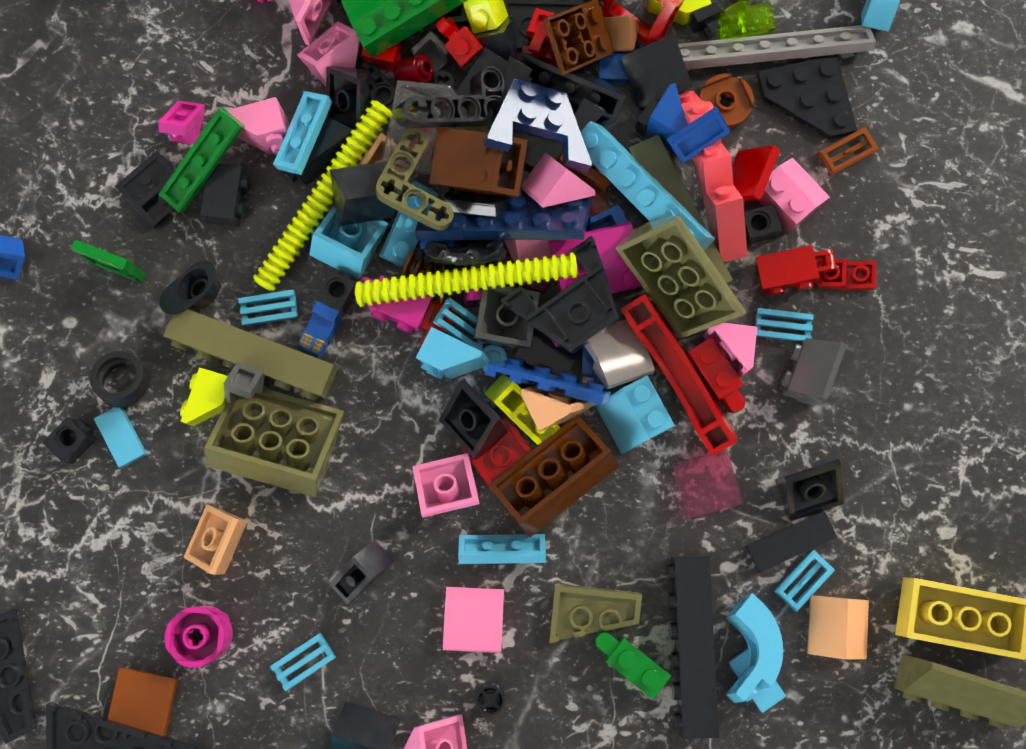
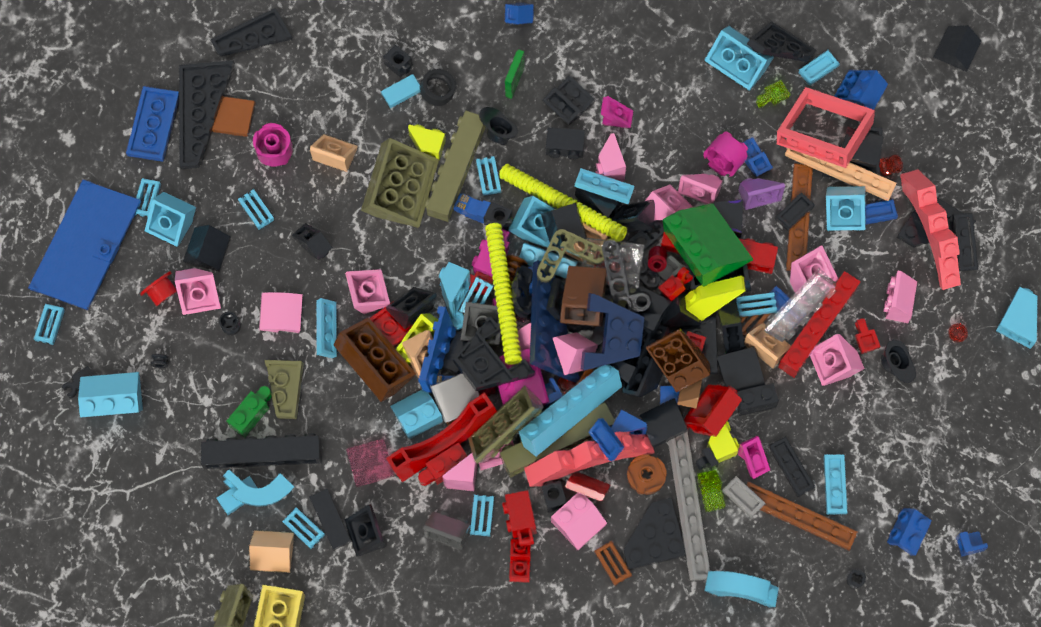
camera: 90 degrees right, 10 degrees down
(201, 159) = (583, 124): green tile -> none
(243, 382) = (434, 160): dark grey panel -> none

